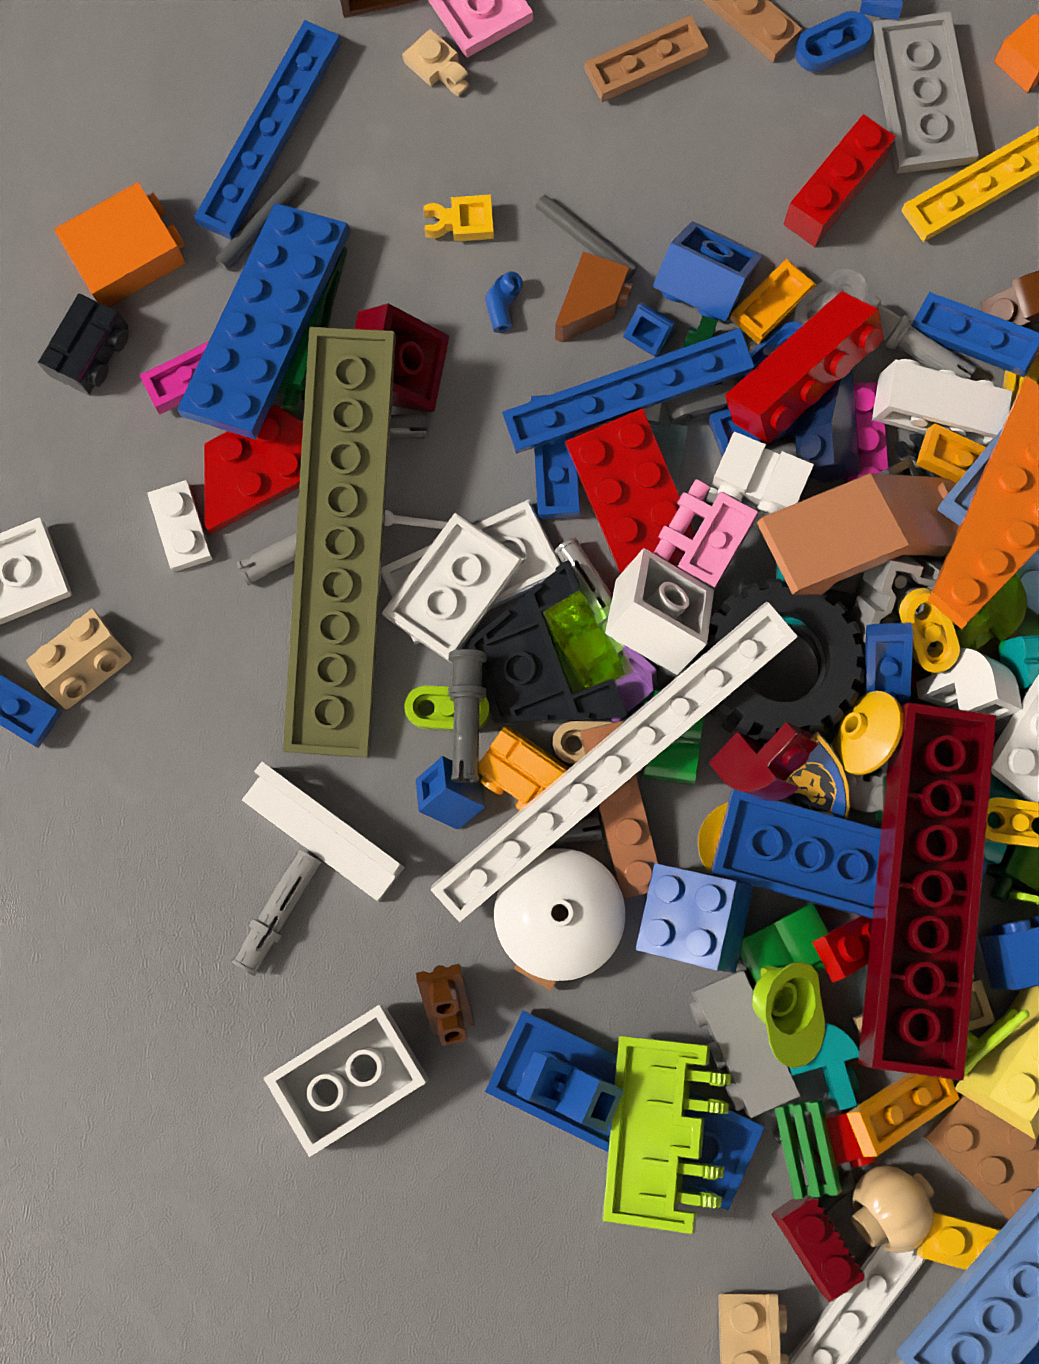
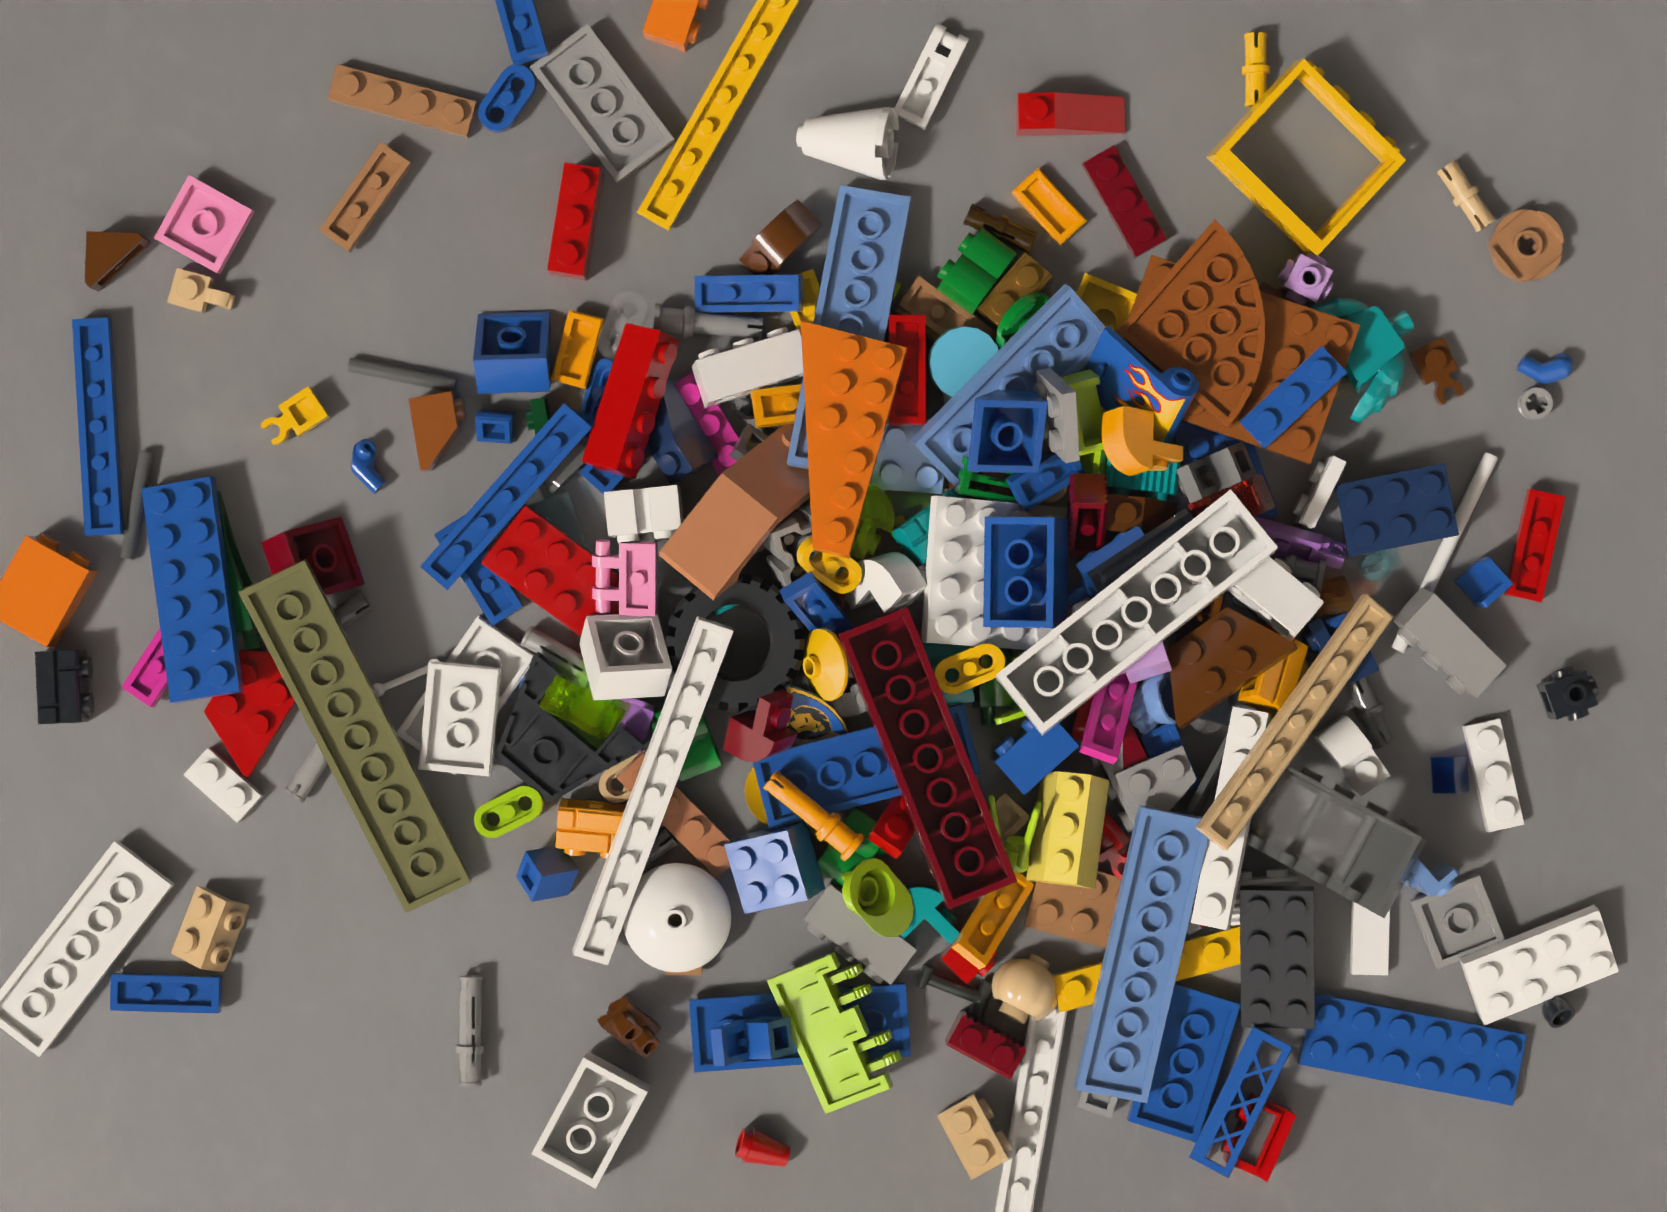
camera: 30 degrees left, 10 degrees up
(322, 833) = (470, 954): white fence -> none
(466, 694) = (517, 797): dark grey pin -> none
(508, 1218) = (760, 1148): none -> red cone
(777, 904) = (827, 826): none -> light orange pin
(791, 1152) = (937, 987): tile -> none

